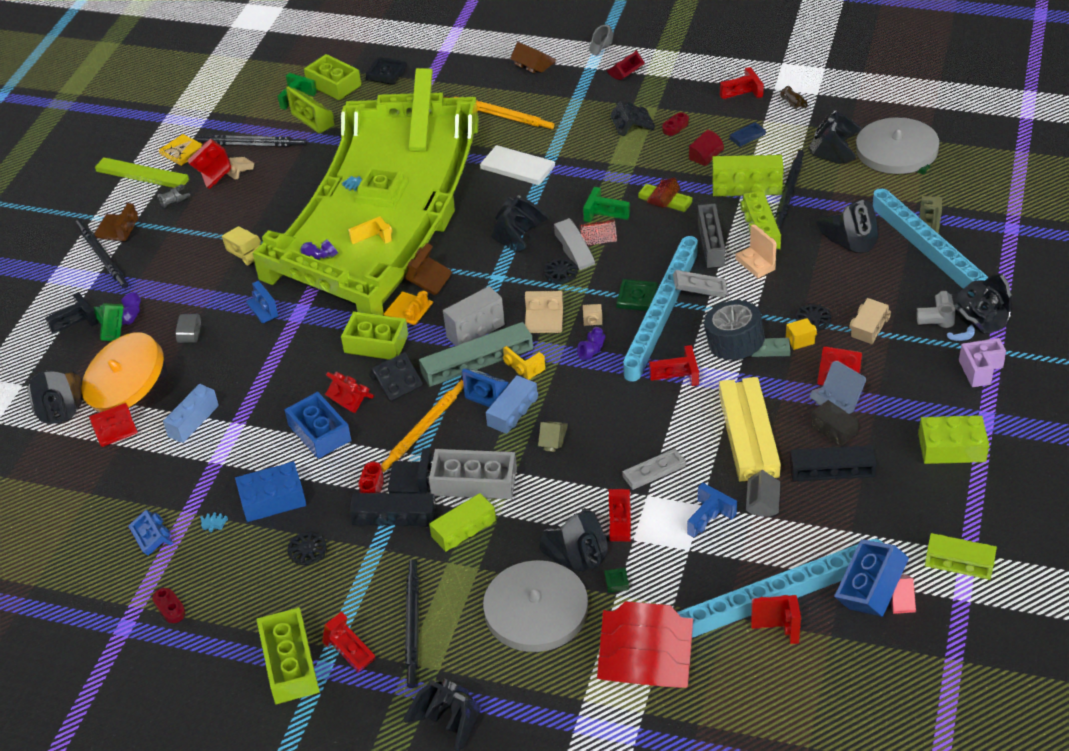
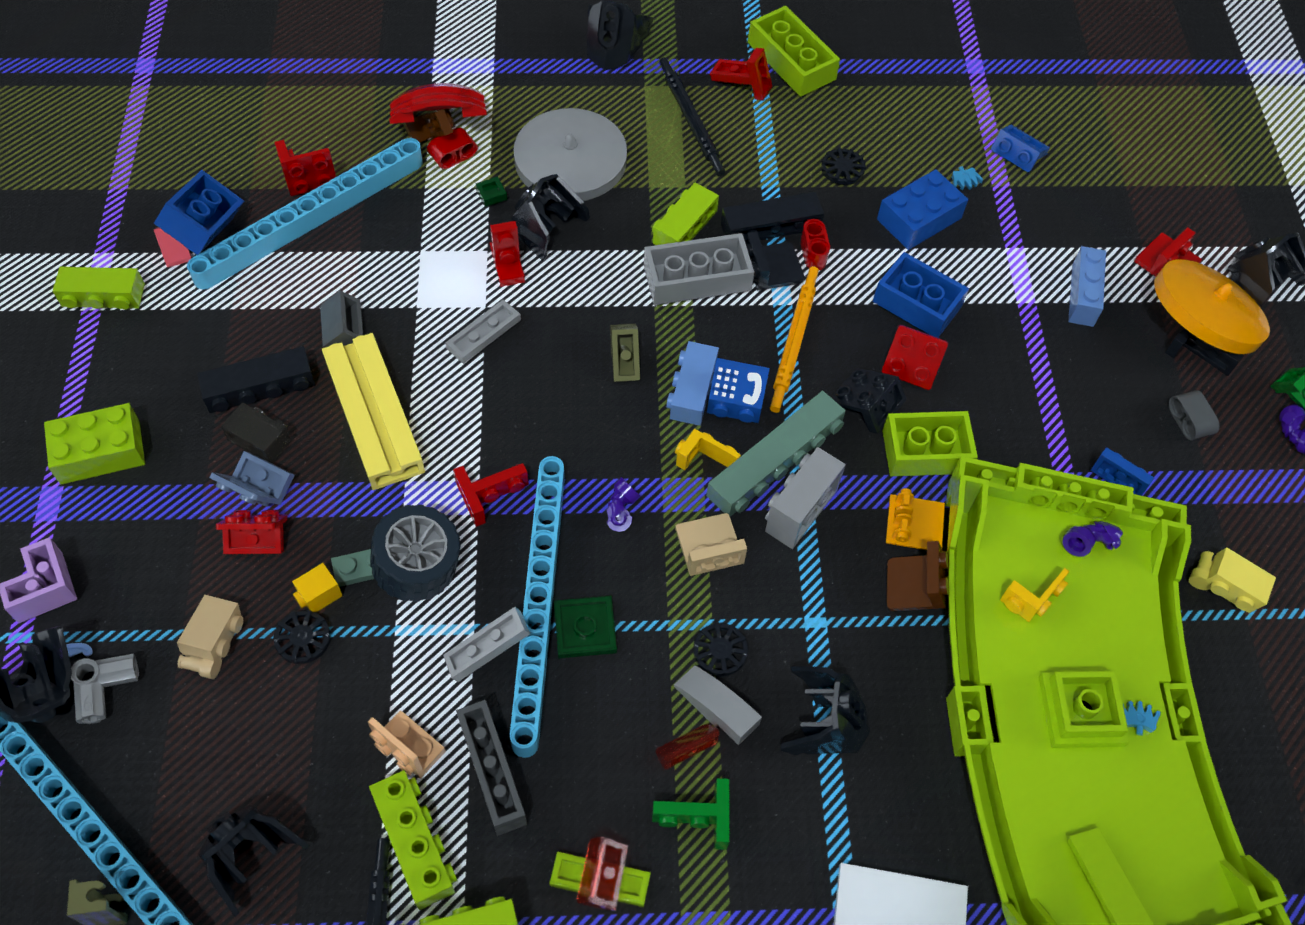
camera: 155 degrees right, 15 degrees up
(165, 602) = (946, 88): dark red plate -> none
(592, 314) = (640, 566): tan bracket -> none
(712, 504) = (400, 297): blue bracket -> none

